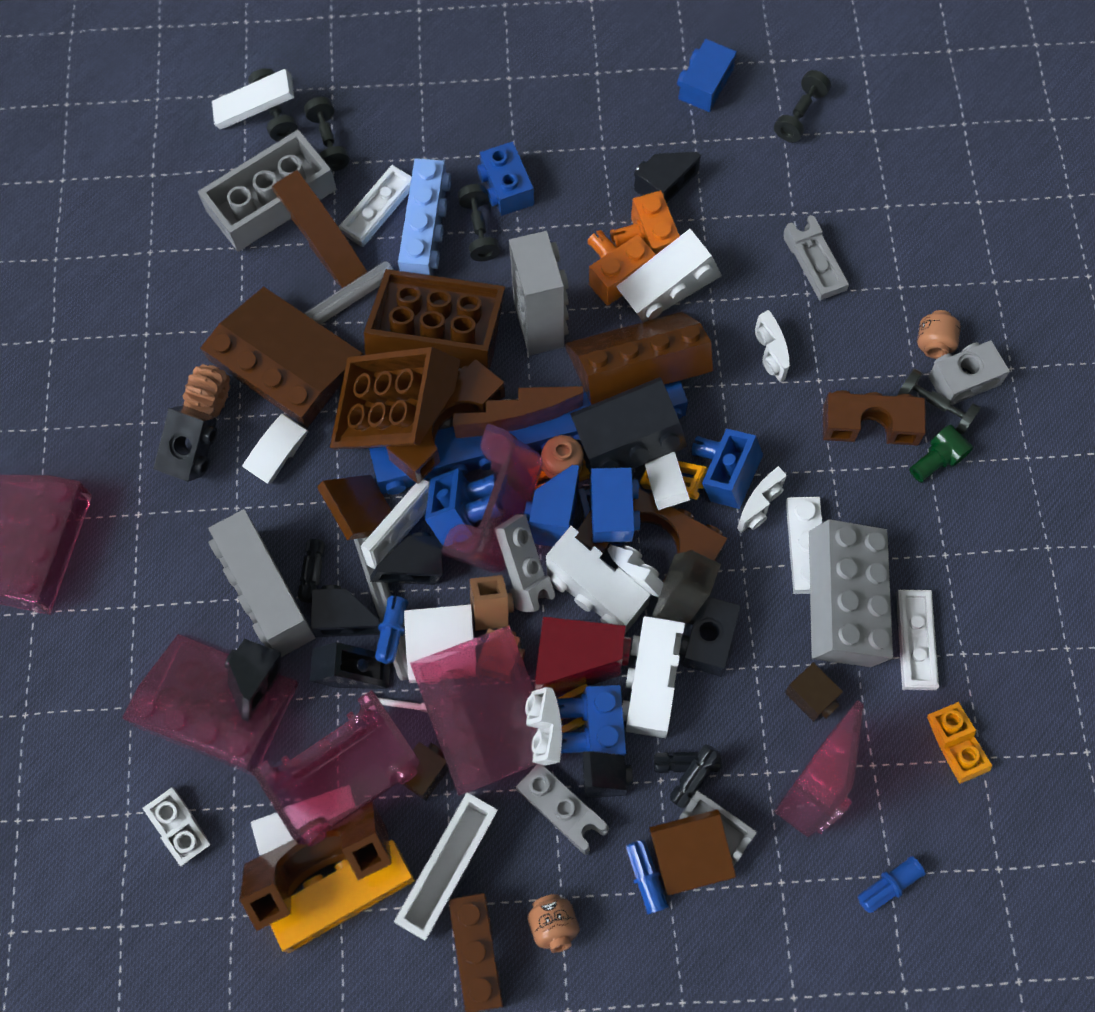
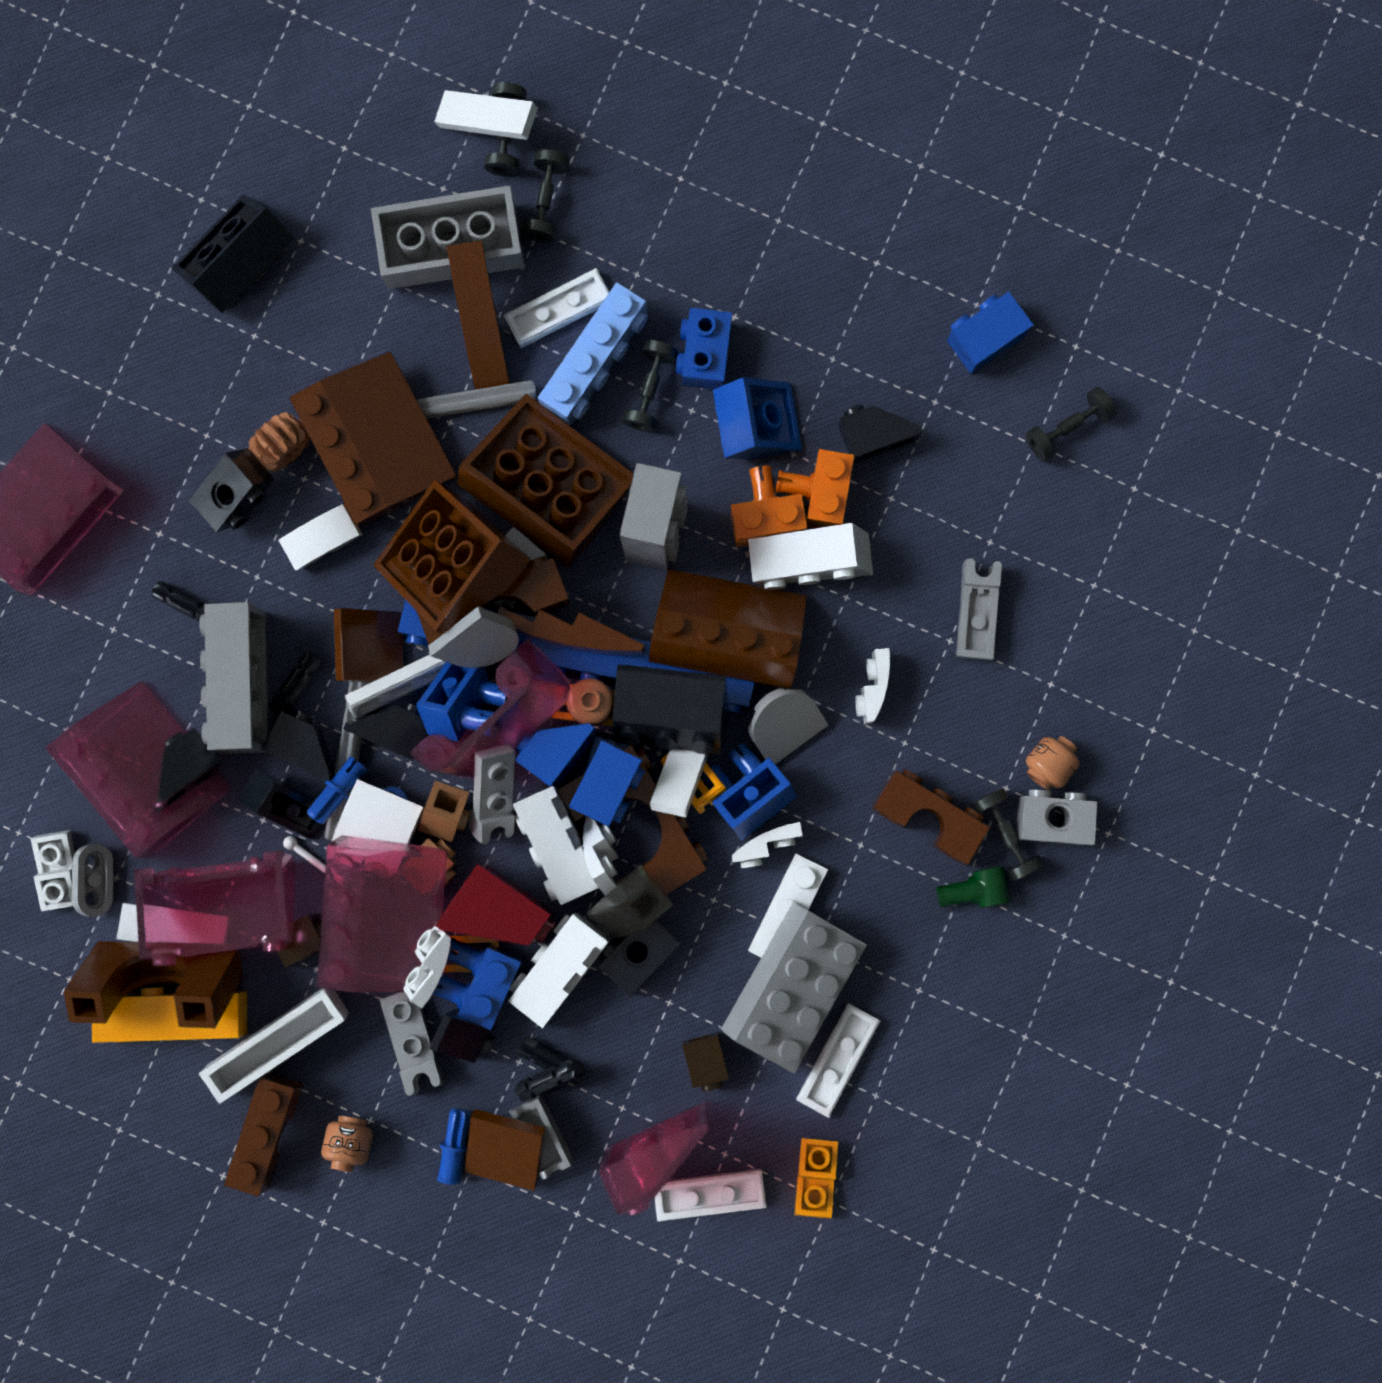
camera: 30 degrees right, 15 degrees up
(101, 279) = (233, 253): none -> black slope
(185, 554) = (178, 600): none -> black axle
(216, 816) = (95, 880): none -> light grey plate
(449, 443) = (476, 640): none -> light grey tile
(570, 207) = (756, 419): none -> blue slope
(721, 401) = (784, 722): none -> light grey tile
(882, 803) = (711, 1195): none -> white tile
(891, 884) = (672, 1272): blue axle -> none

